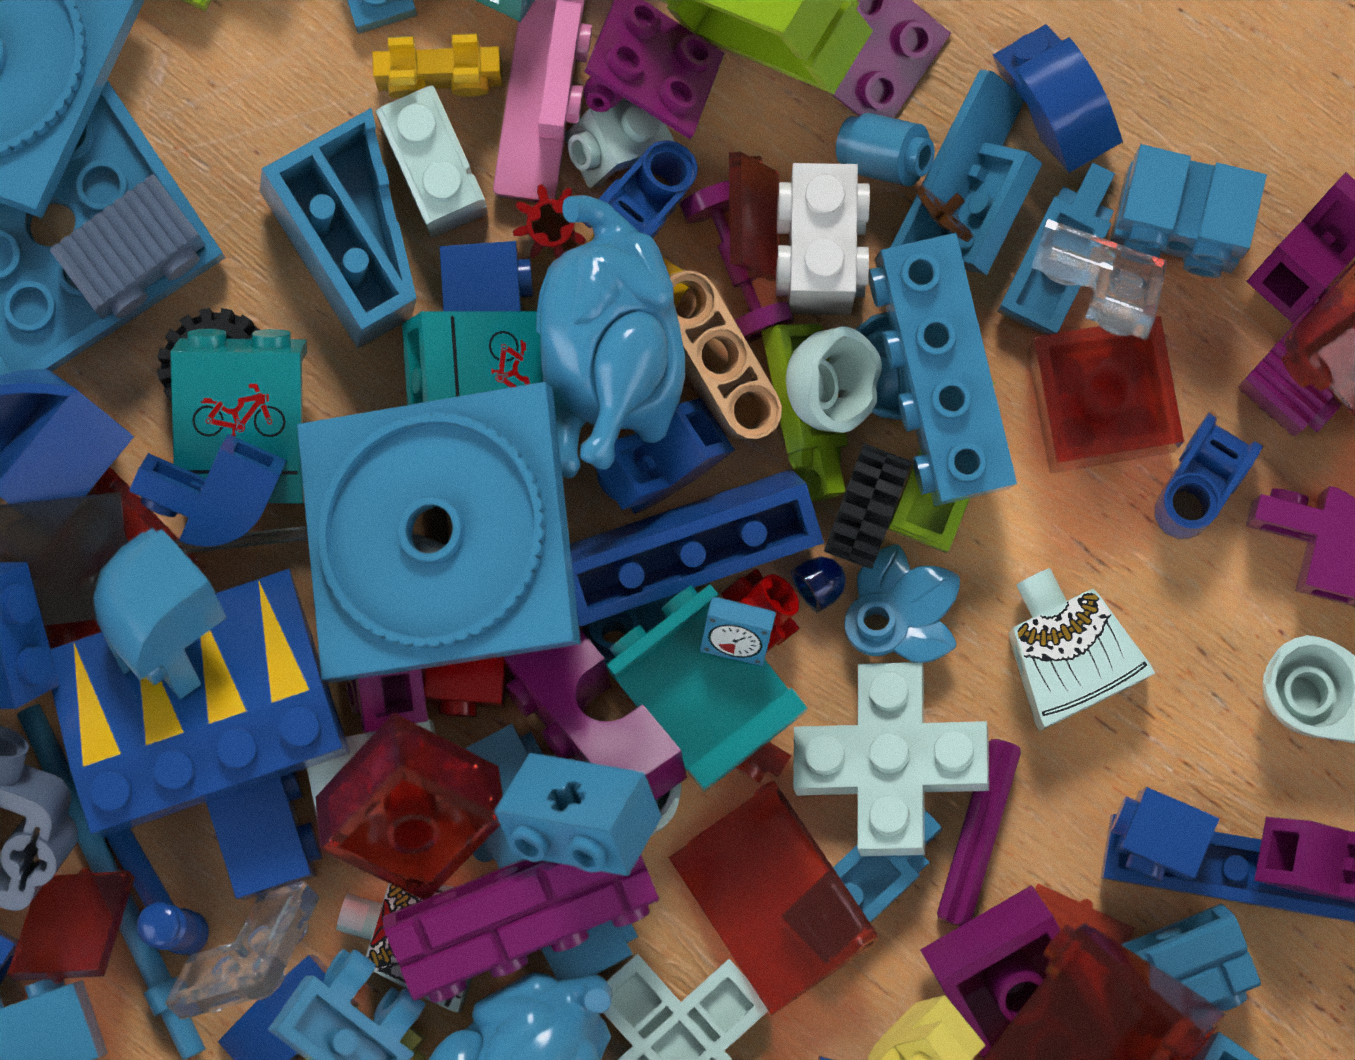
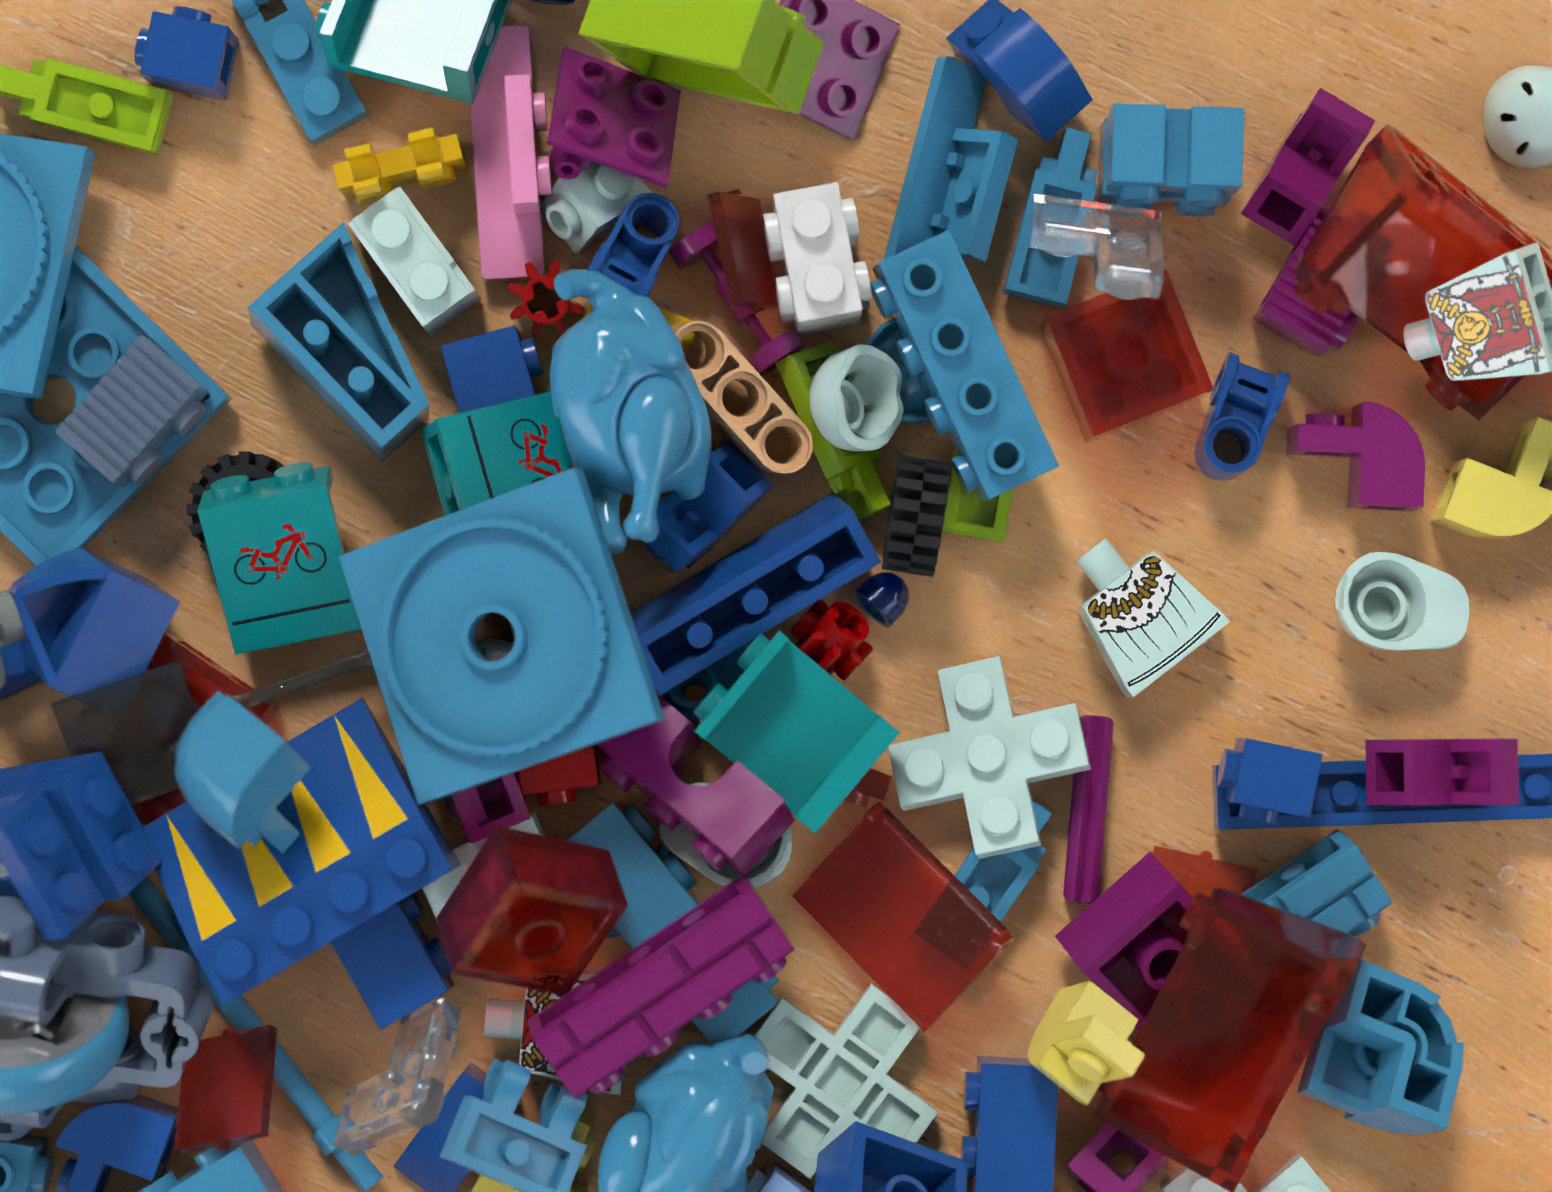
camera: 15 degrees left, 5 degrees up
(160, 922) = (314, 1068): blue piece -> none
(217, 506) = (279, 651): blue brick -> none
(578, 814) = (698, 887): dark azure brick -> none
(737, 631) = (815, 670): dark azure tile -> none
(885, 148) = (860, 155): dark azure brick -> none
(909, 601) = (977, 600): dark azure plate -> none
(944, 213) = (932, 209): reddish brown plant -> none

